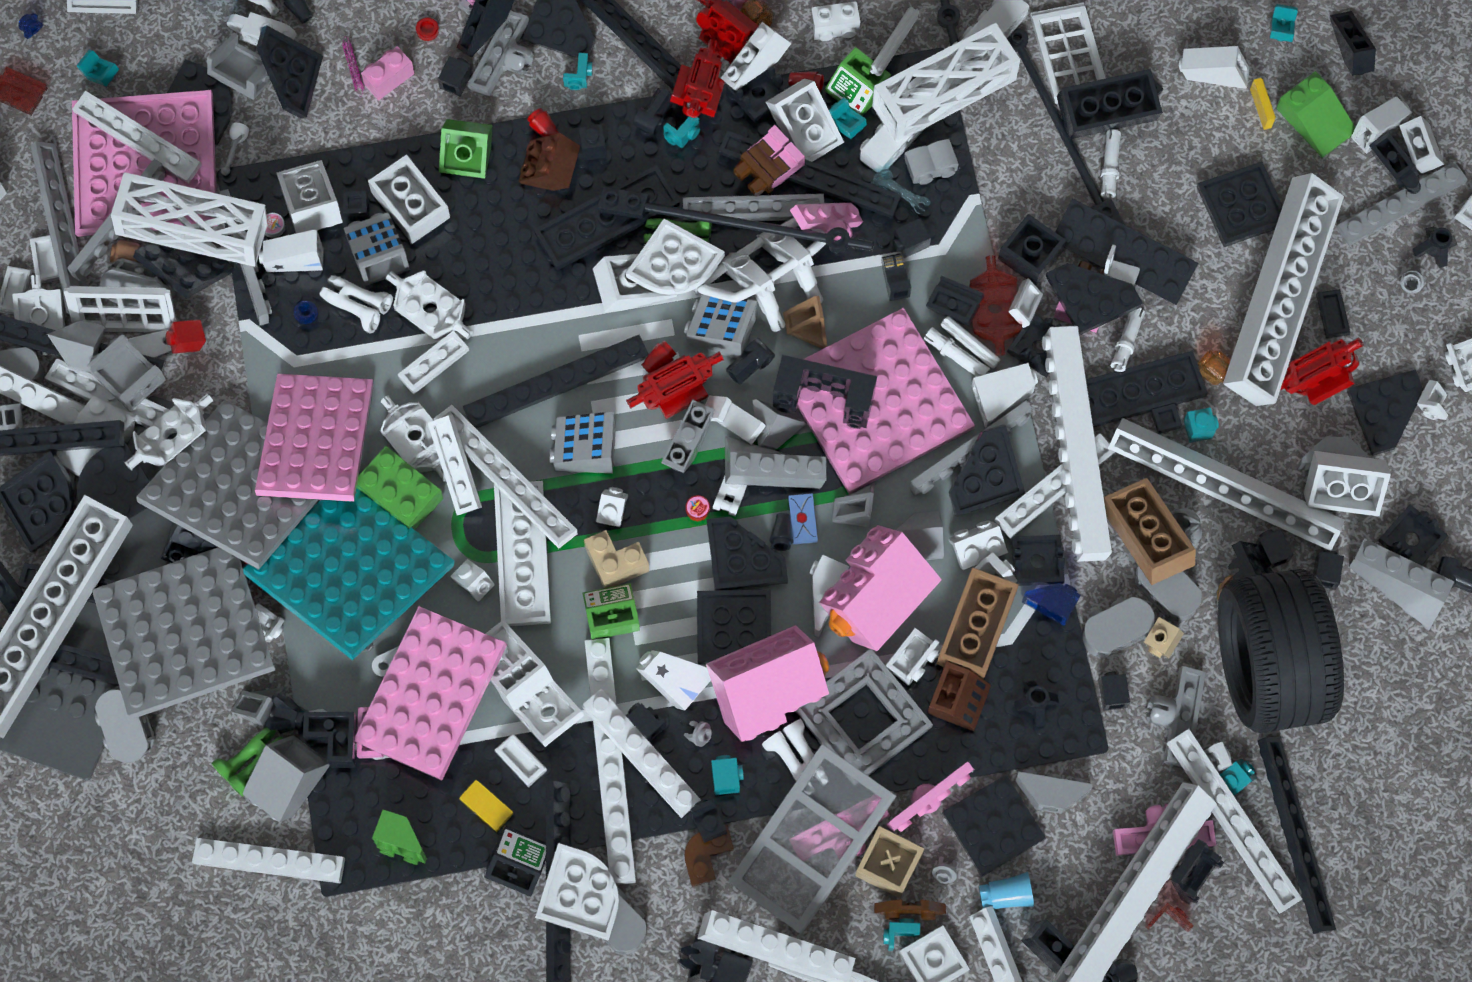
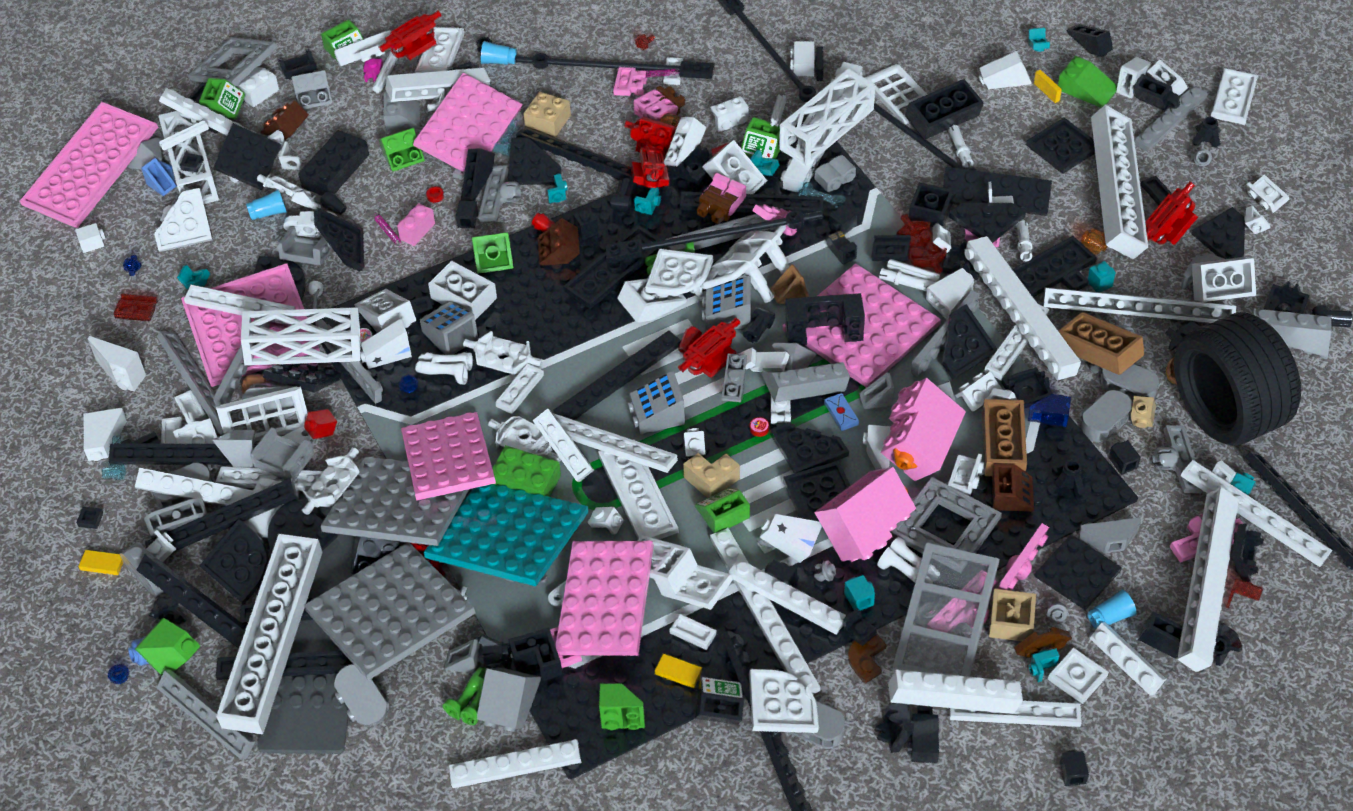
camera: 15 degrees left, 20 degrees down
(781, 534) = (830, 423): black cone -> none

